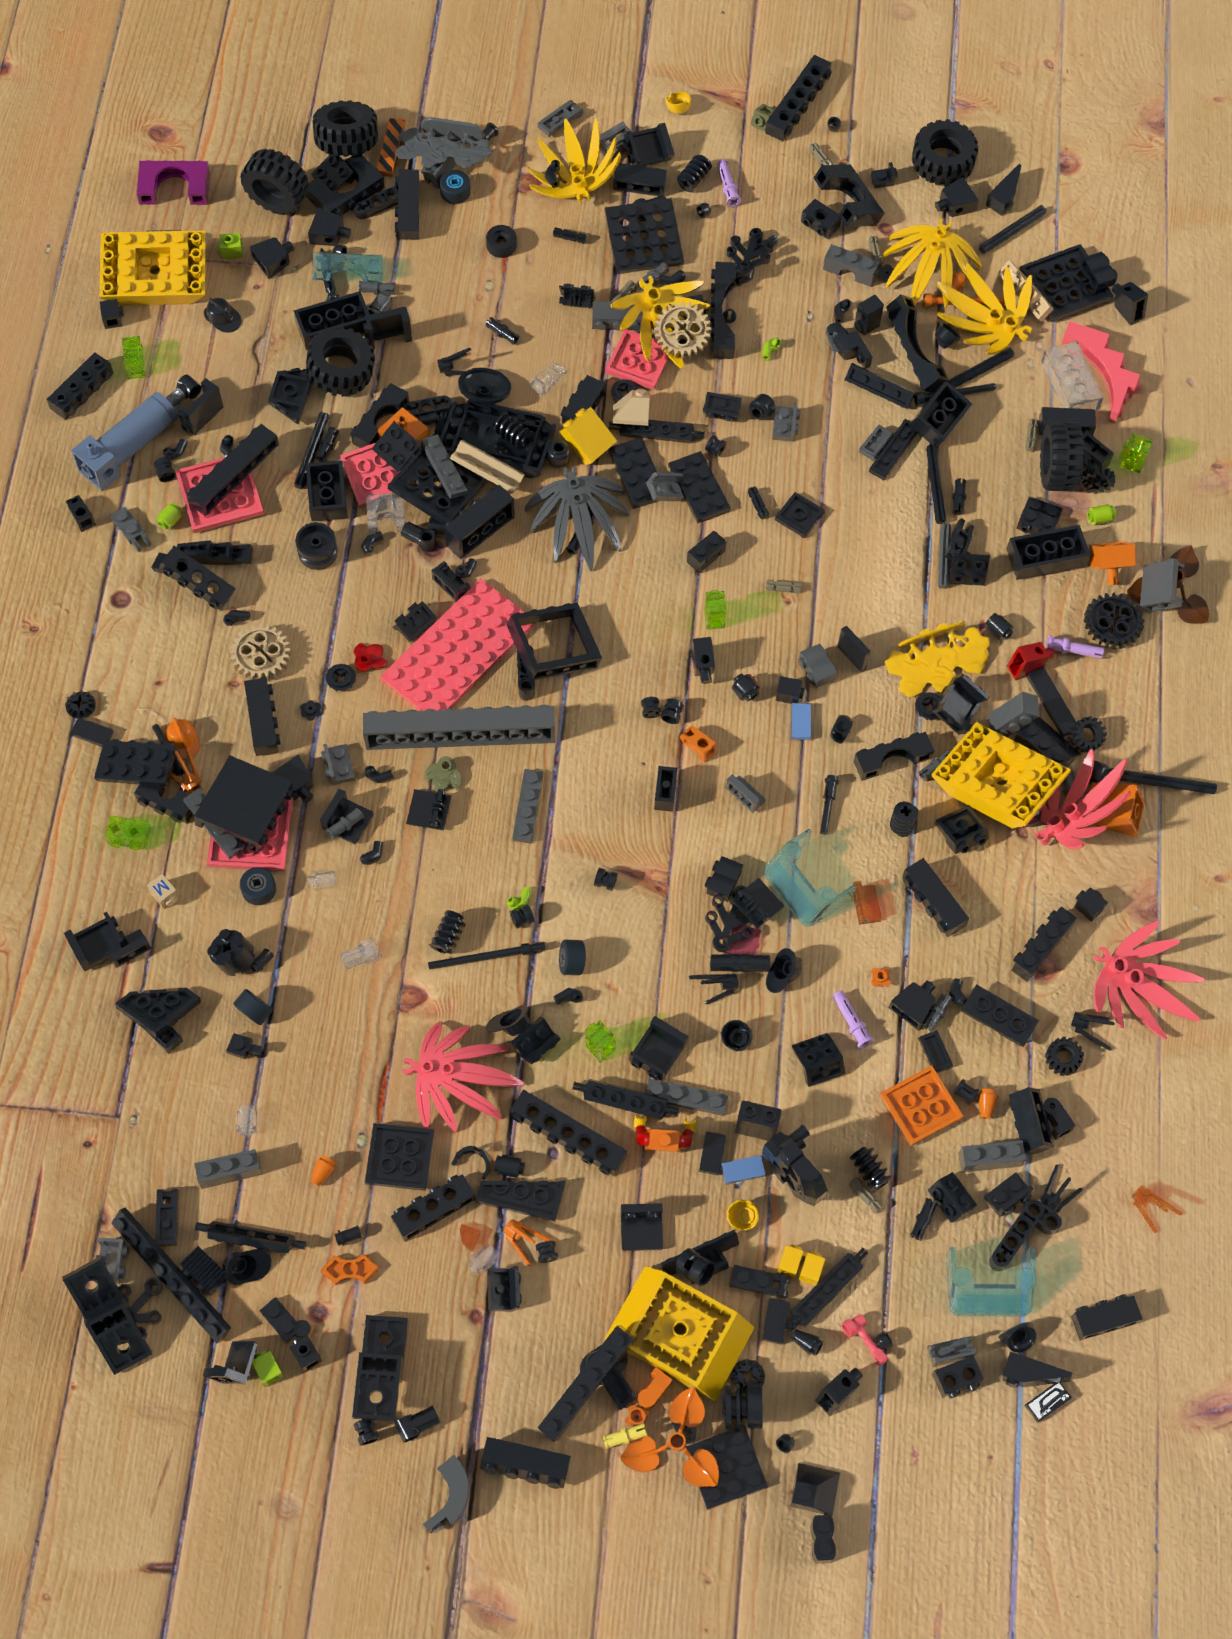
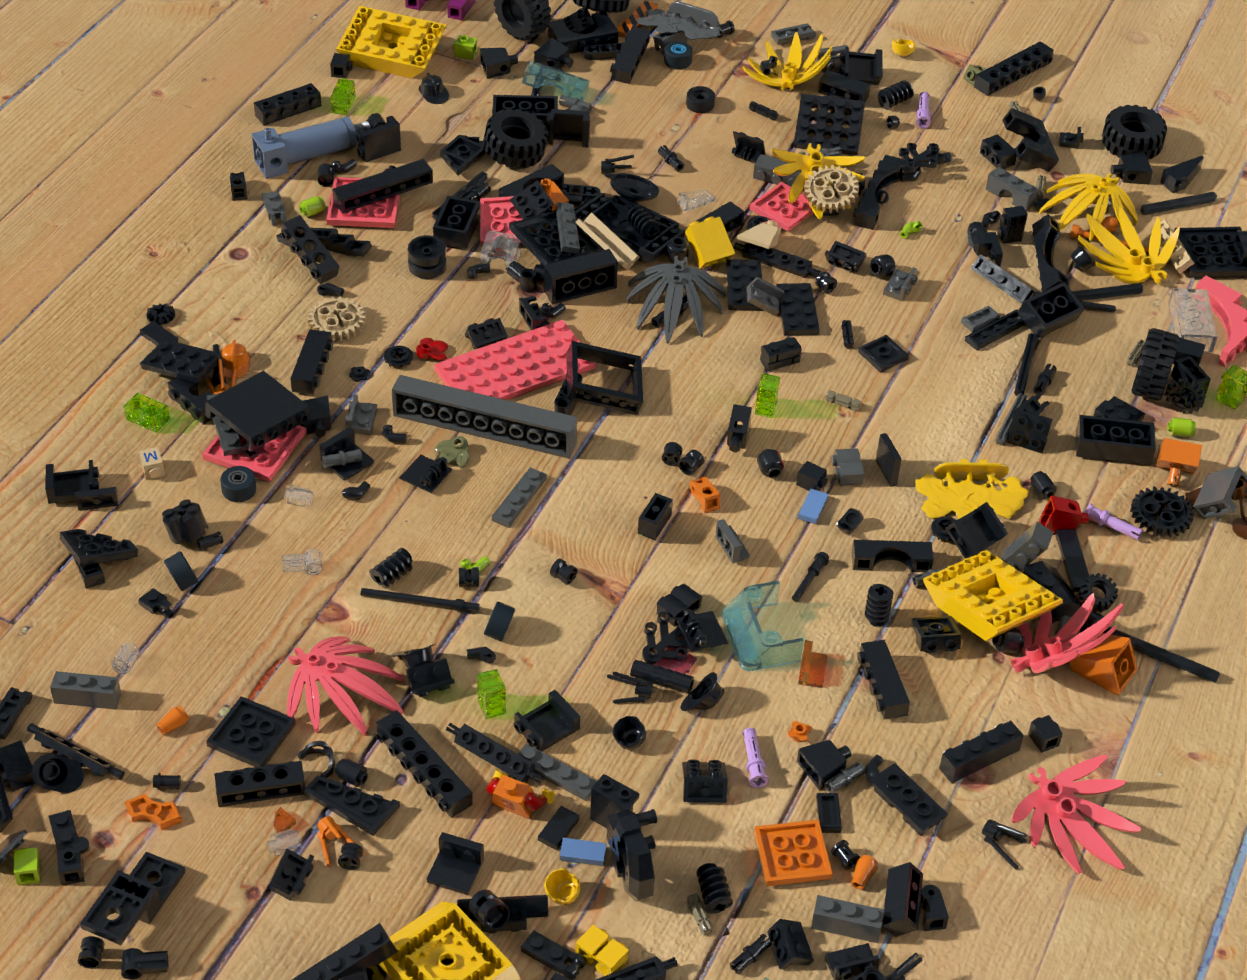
camera: 20 degrees right, 20 degrees down
(1058, 1066) = (960, 866): black tyre -> none

